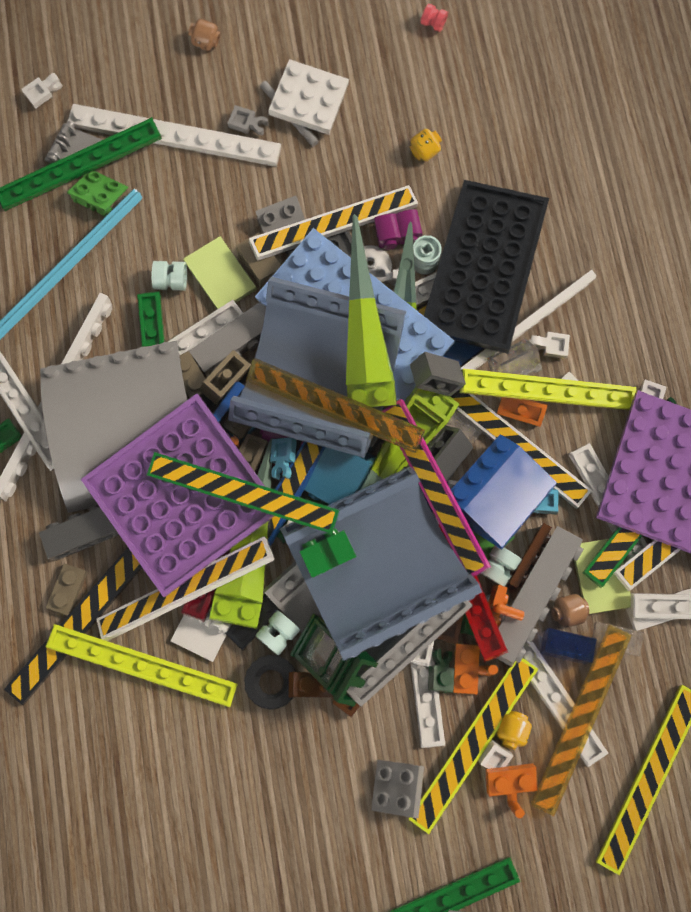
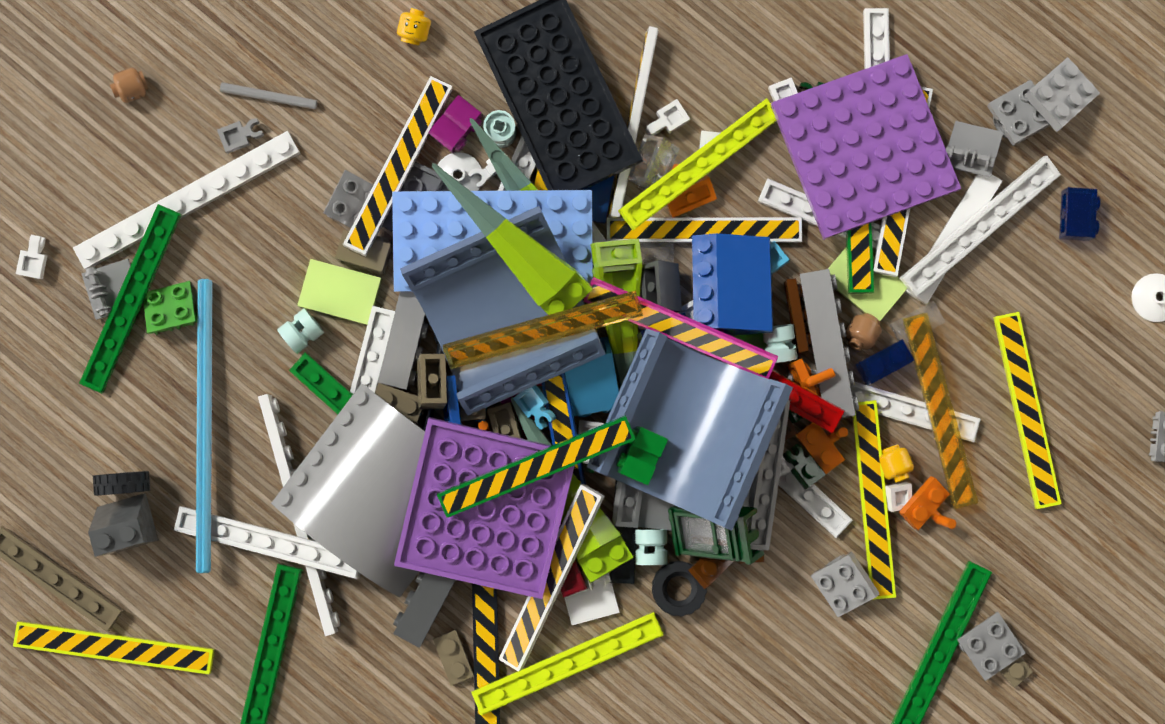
camera: 40 degrees left, 10 degrees up
(308, 97) = (273, 66): white plate -> none
(437, 374) = (603, 232): dark grey brick -> none

